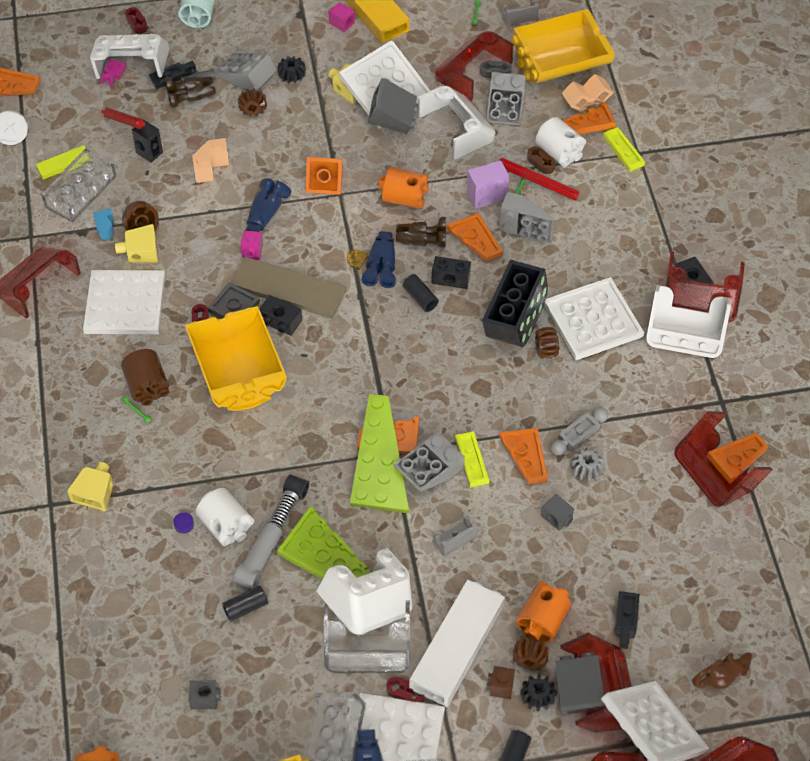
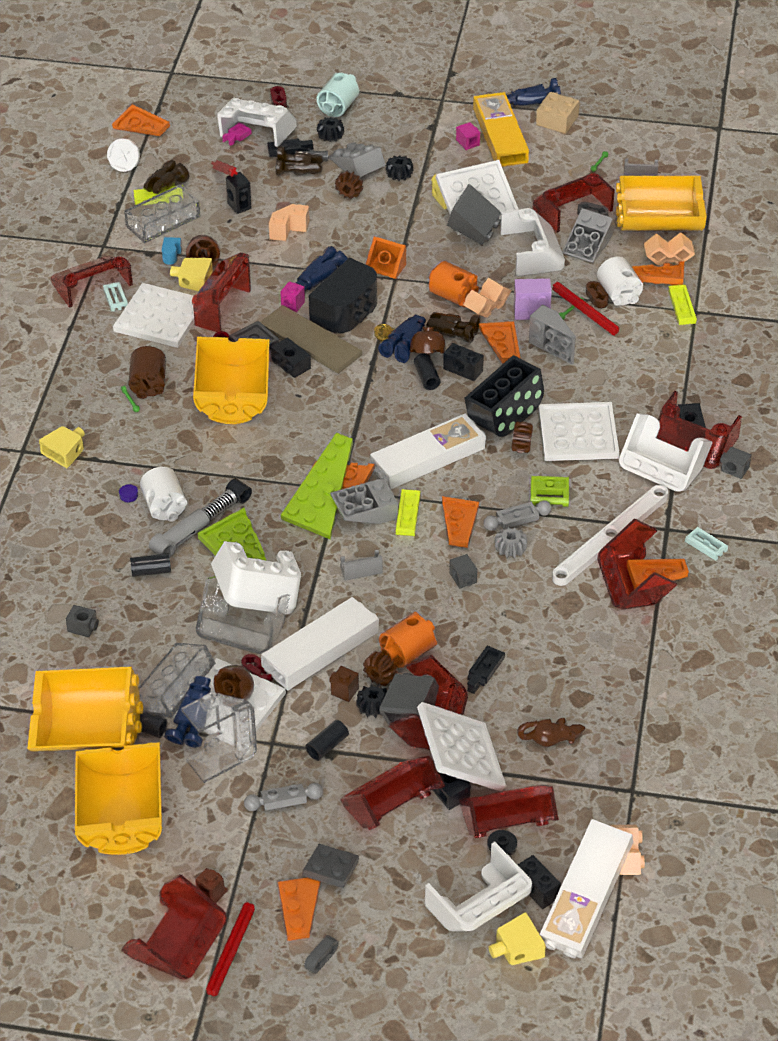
camera: 20 degrees right, 10 degrees down
(65, 141) = (166, 177): none -> dark brown piece
(76, 302) = (117, 304): none -> light aqua tile
(182, 243) = (229, 274): none -> clear red windscreen
(204, 43) = (330, 129): none -> black gear
(306, 233) = (344, 297): none -> black brick
(399, 726) = (234, 682): none -> reddish brown cylinder
(410, 262) = (427, 341): none -> reddish brown cylinder
(444, 191) = (490, 297): none -> light nougat brick
(461, 384) = (428, 451): none -> white brick
(596, 388) = (550, 486): none -> lime plate
(670, 436) = (589, 551): none -> white beam
(753, 310) = (735, 462): none -> dark grey brick
(765, 409) = (704, 545): none -> light aqua tile

